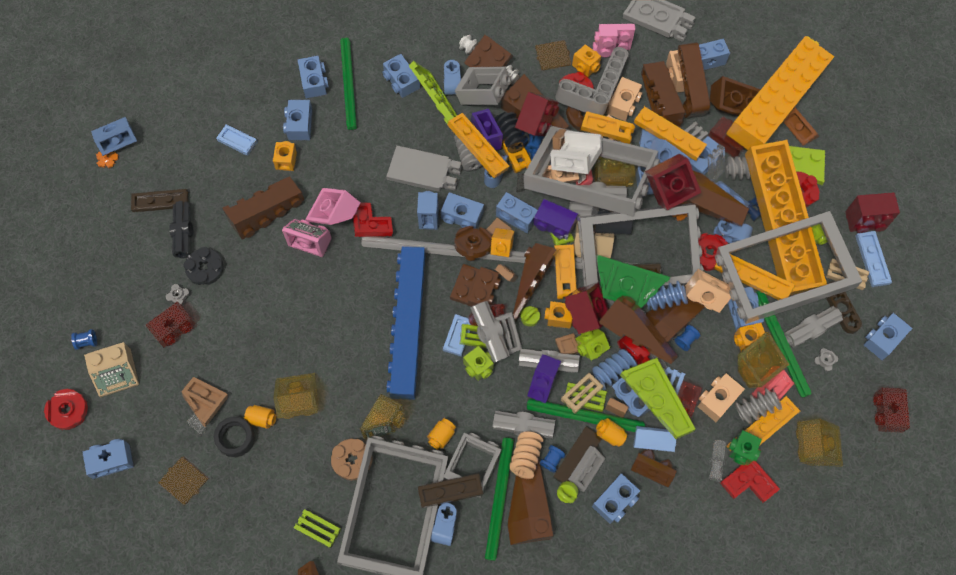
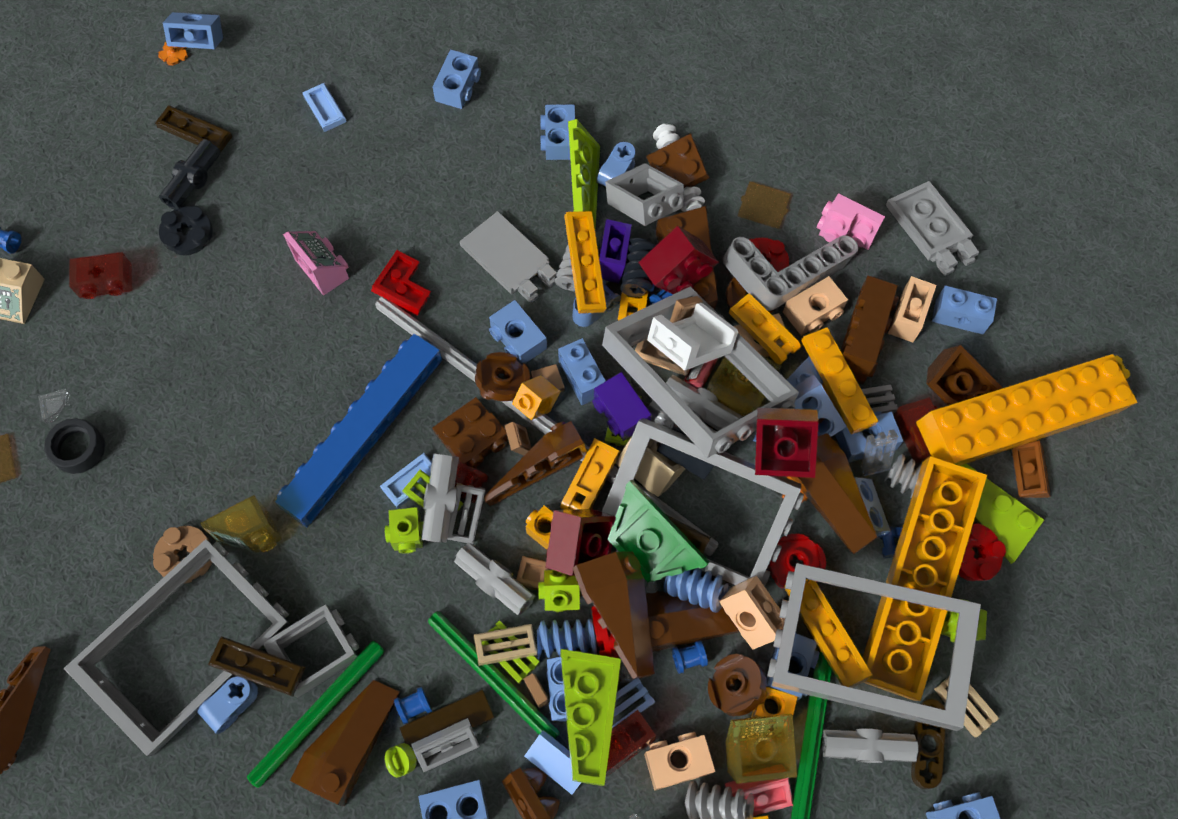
camera: 30 degrees right, 0 degrees up
(183, 293) = (138, 250): light grey plate -> none
(203, 399) = (72, 382): medium nougat wing -> none
(260, 416) = (119, 439): light orange brick -> none
(263, 207) = (292, 198): reddish brown wedge -> none
(284, 162) = (355, 159): light orange brick -> none
(296, 396) = (173, 439): clear yellow slope -> none
(298, 129) = (405, 120): medium blue brick -> none
(302, 520) = (75, 616): lime tile -> none
(333, 207) = (366, 243): bright pink slope -> none
(348, 84) = (493, 110): green axle -> none
(427, 210) = (474, 307): medium blue brick -> none
(441, 433) = (303, 589): light orange brick -> none
(523, 422) = (408, 639): light grey piece -> none
(526, 454) = (380, 677): light nougat piece -> none
(530, 316) = (512, 509): lime tile -> none
(544, 378) = (466, 597): dark purple brick -> none
(586, 60) = (798, 232): light orange brick -> none
(611, 432) = (506, 718): light orange brick -> none
(694, 80) = (917, 328): reddish brown beam -> none
(723, 325) = (751, 692): none -> reddish brown plate
(733, 232) = (842, 558): medium blue piece -> none
(832, 358) = (866, 805): light grey plate -> none
(872, 212) = (1053, 641): dark red brick -> none
(873, 259) = (1017, 705): light blue tile -> none

